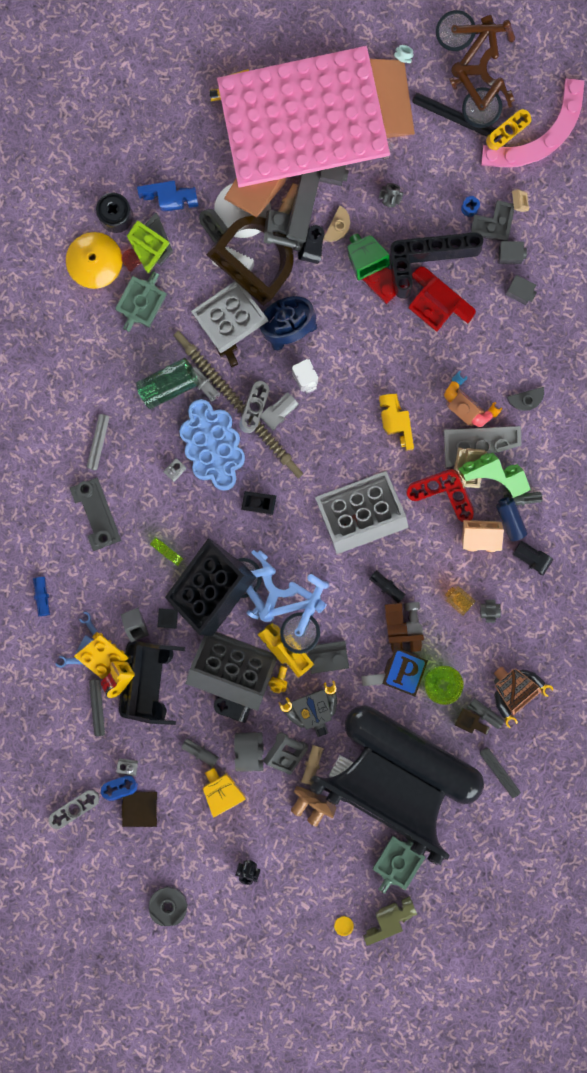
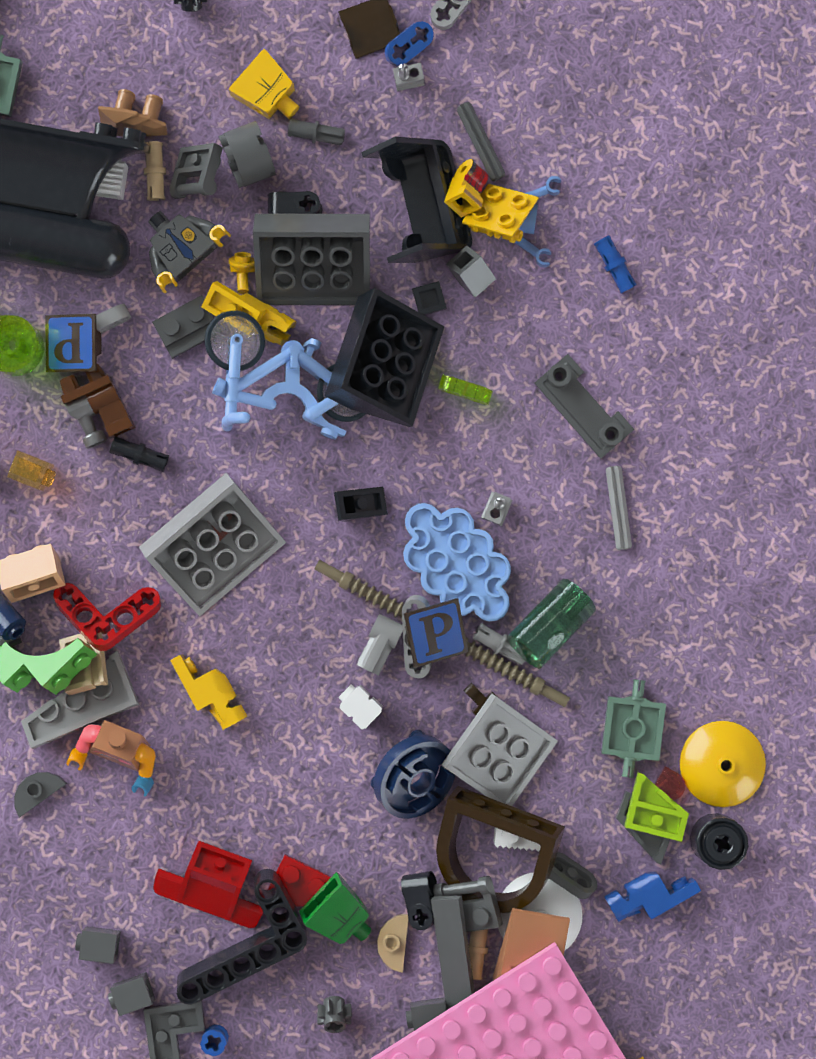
camera: 160 degrees right, 0 degrees up
(241, 403) = (435, 632): none -> piece

